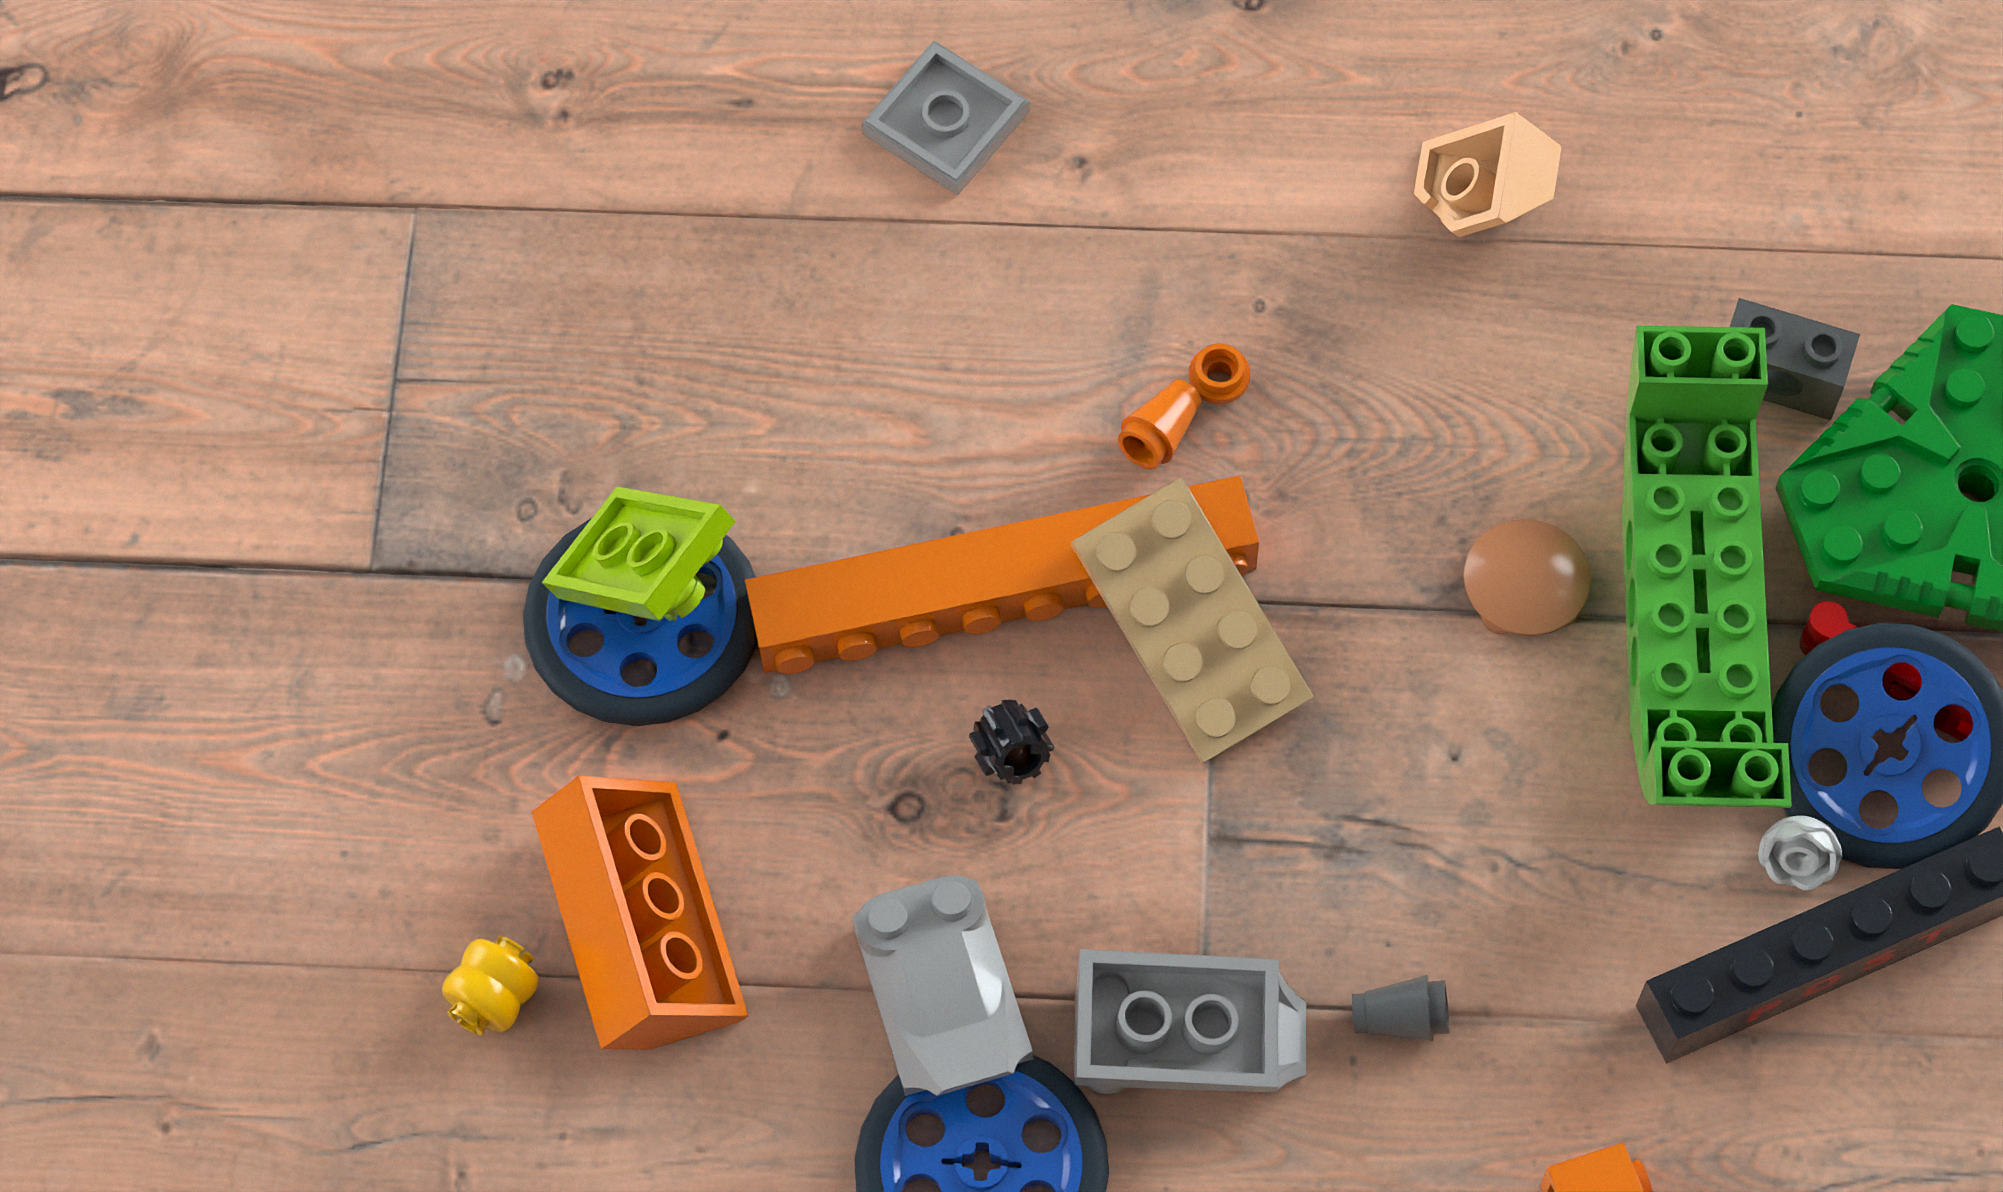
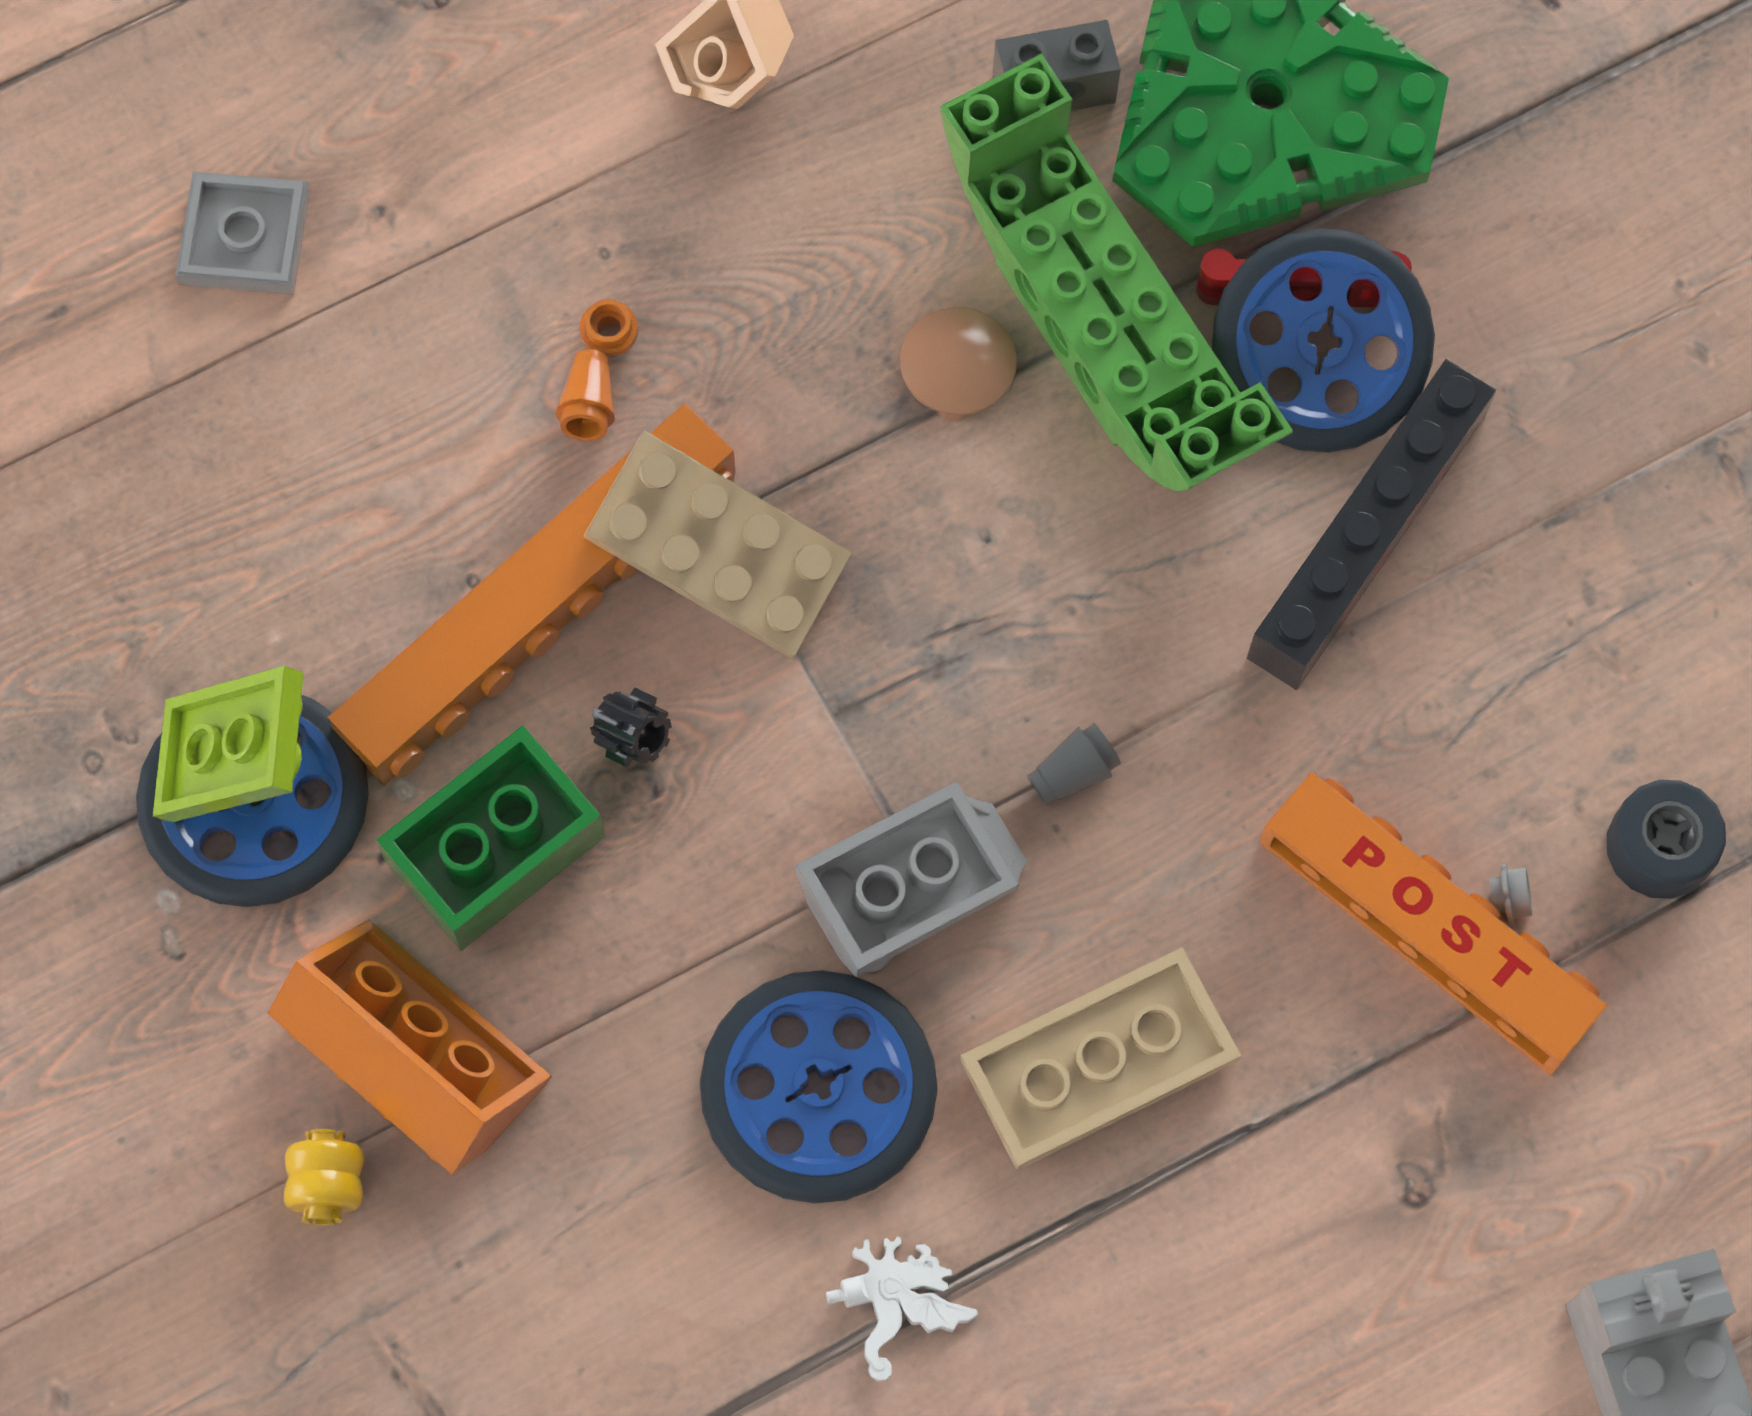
camera: 35 degrees left, 5 degrees up
(823, 769) = (491, 837): none -> green brick
(941, 985) = (699, 961): light grey slope -> none
(1800, 852) = (1303, 464): white plate -> none

